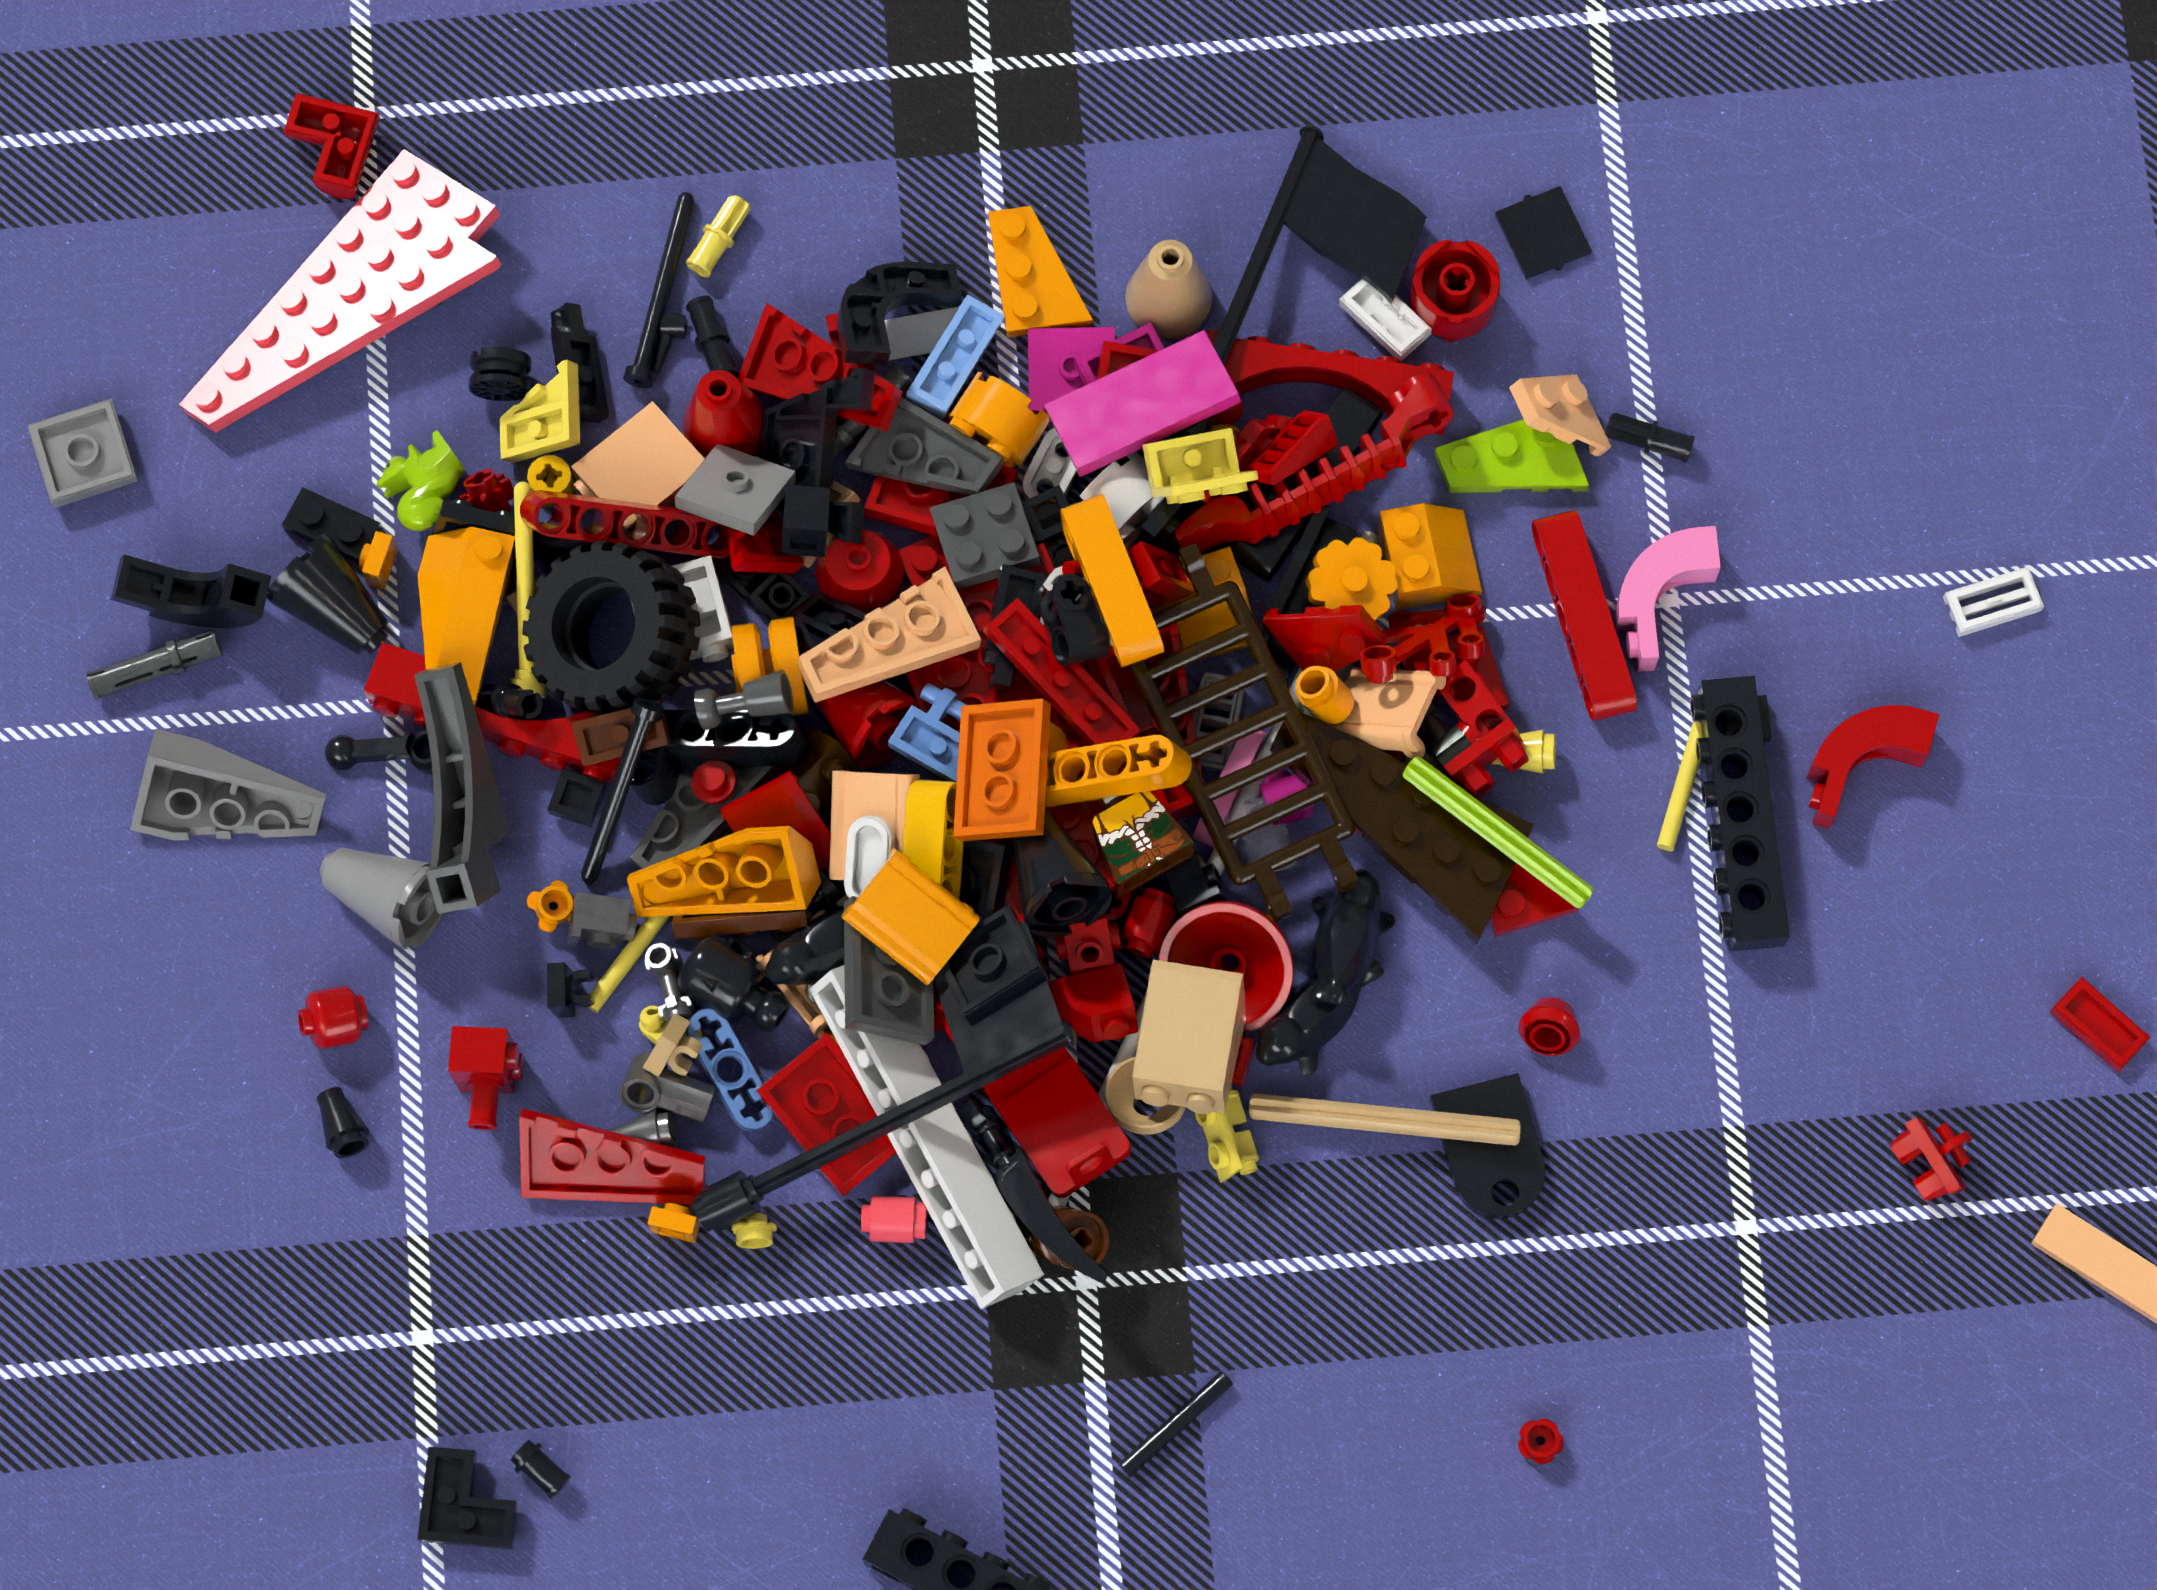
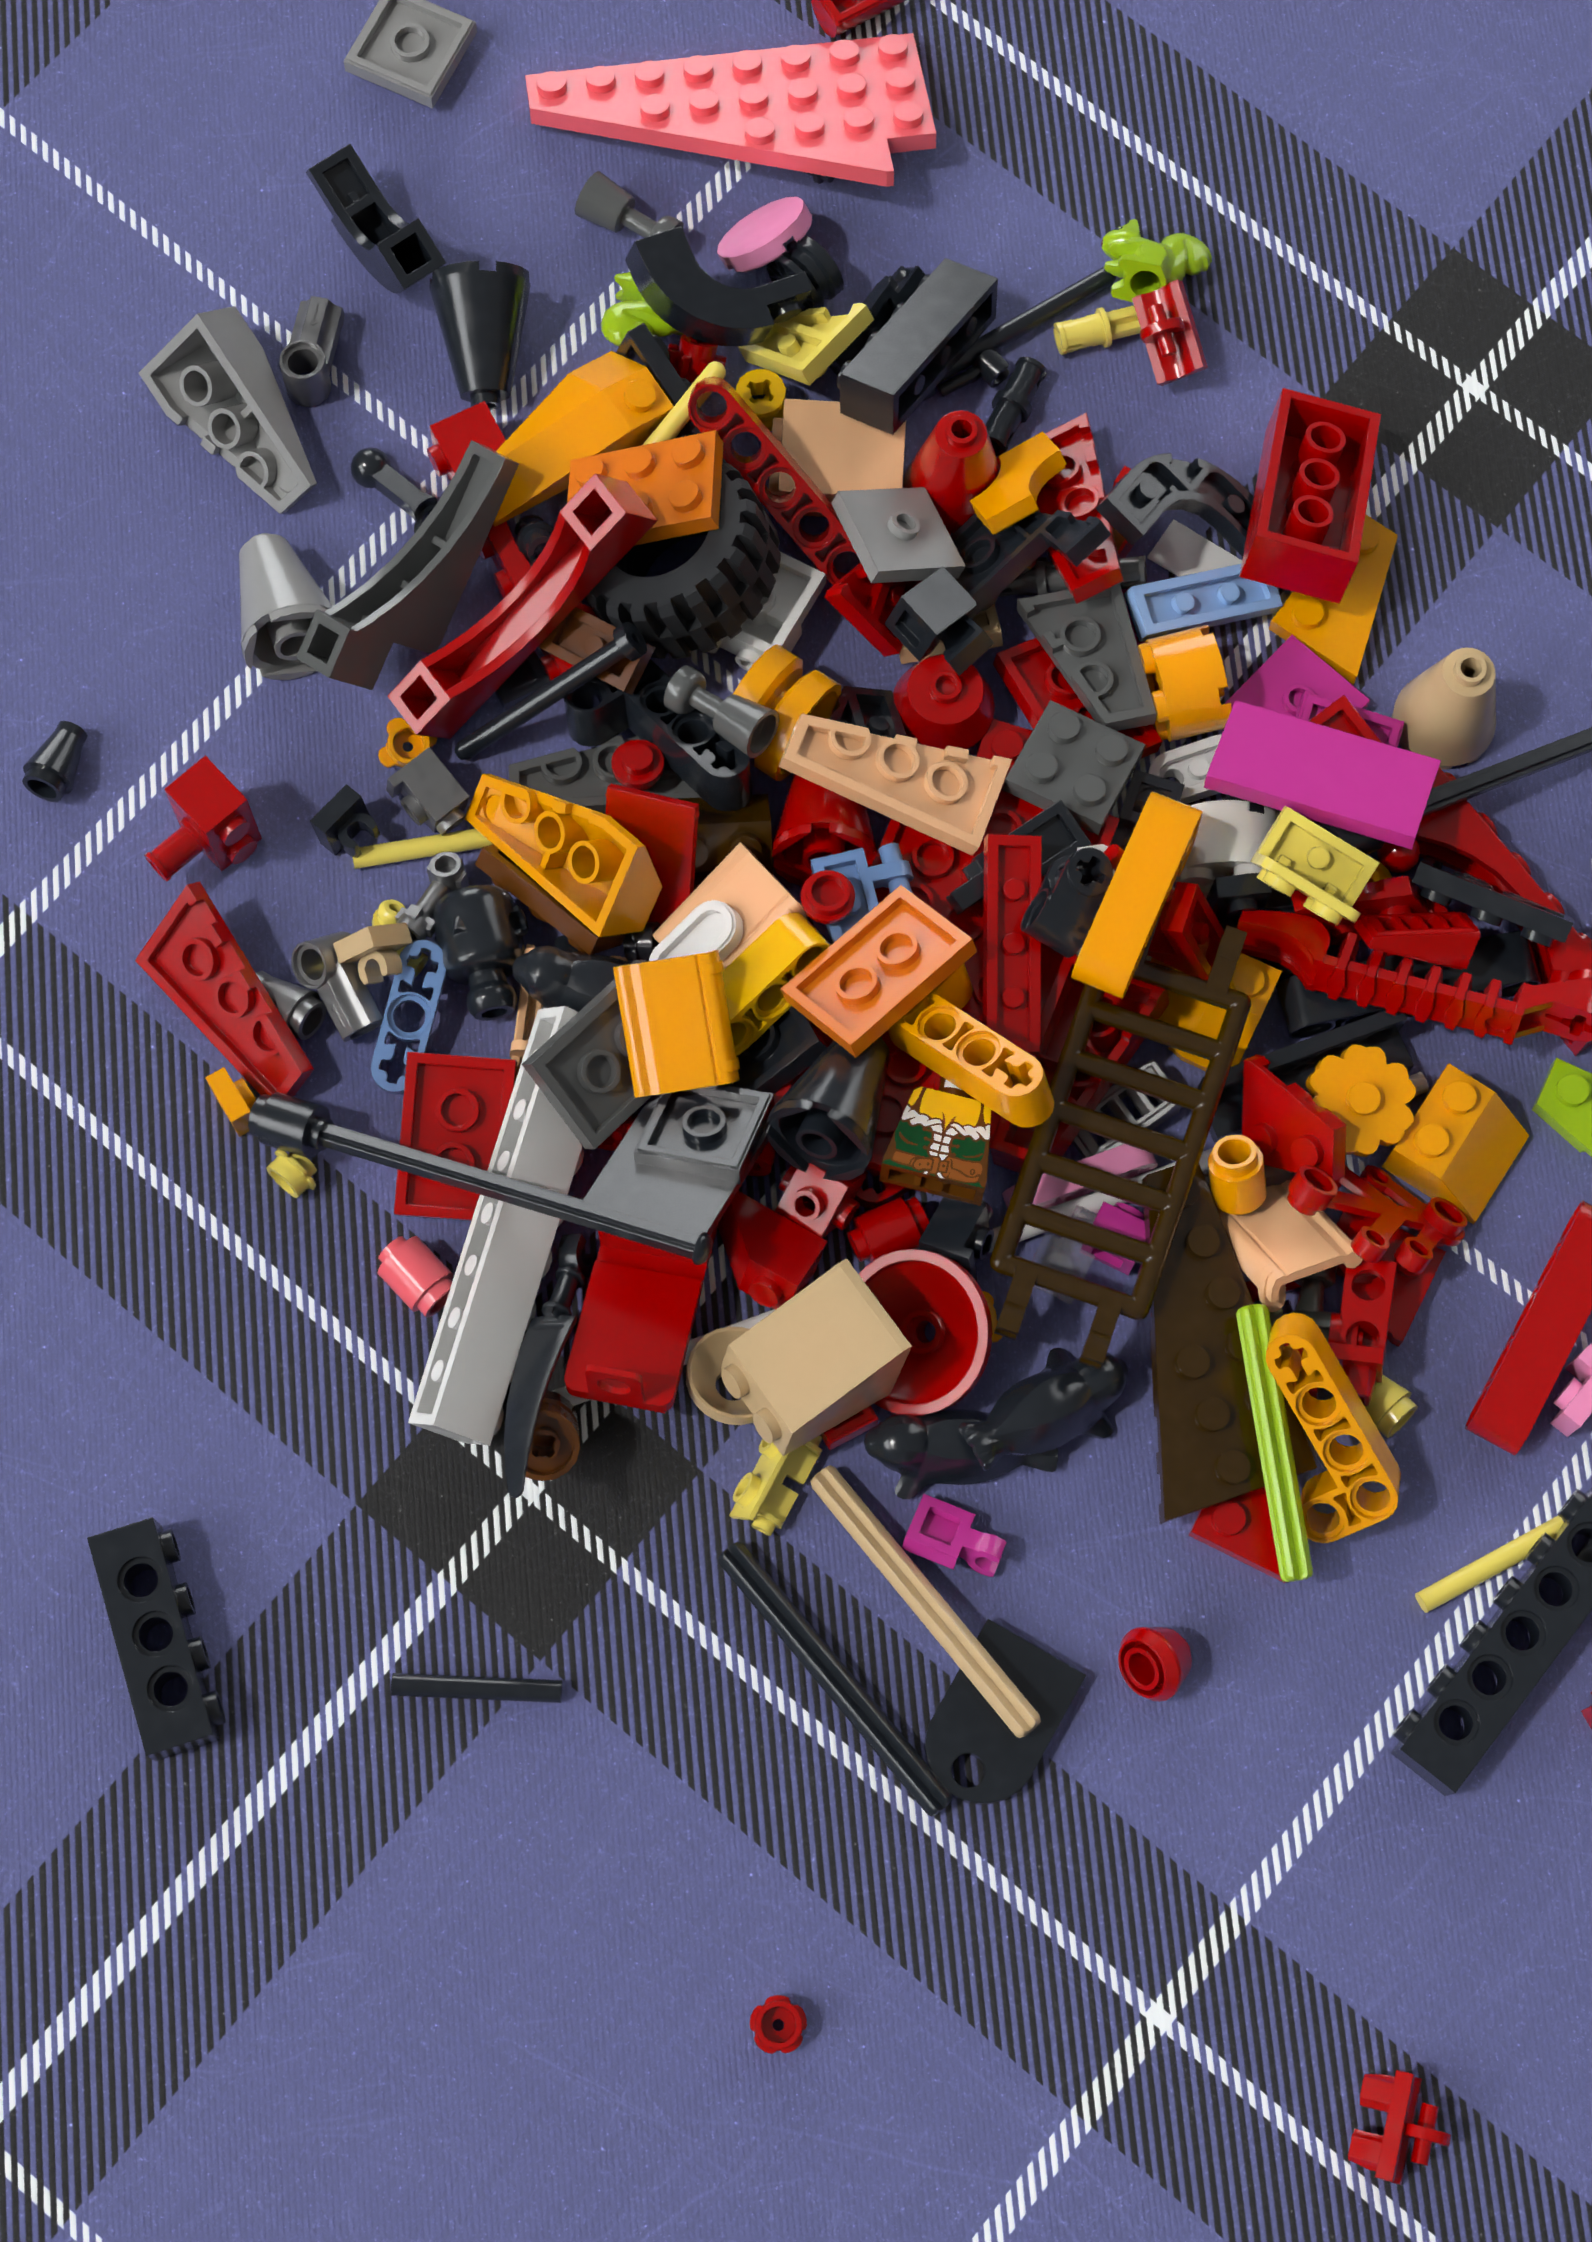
camera: 40 degrees right, 0 degrees up
(147, 666) = (310, 266): dark grey pin -> none
(228, 711) = (311, 350): none -> flat silver piece
(316, 515) = (553, 289): black plate -> none
(326, 441) = (613, 208): none -> dark grey piece
(333, 1017) = (136, 668): red head -> none
(378, 559) = (555, 338): light orange plate -> none
(447, 370) = (762, 233): none -> bright pink tile
(460, 457) = (702, 306): none -> black arch
(553, 804) = (584, 546): none -> red arch
(560, 609) = (672, 477): none -> orange plate
(621, 356) = (917, 346): none -> brick
(710, 170) = (1150, 264): none -> lime animal
(768, 203) = (1169, 333): none -> red hips
(769, 593) = (848, 653): black slope -> none
(771, 378) = (1019, 481): none -> light orange tile
(923, 754) = (827, 897): none -> red plate
(960, 231) = (1311, 496): none -> red brick
(1350, 375) = (1538, 922): none -> black wing
(1360, 1071) = (945, 1534): none -> dark pink plate
(1376, 1215) = (835, 1679): none -> black axle
(1516, 793) = (1324, 1421): none -> light orange beam

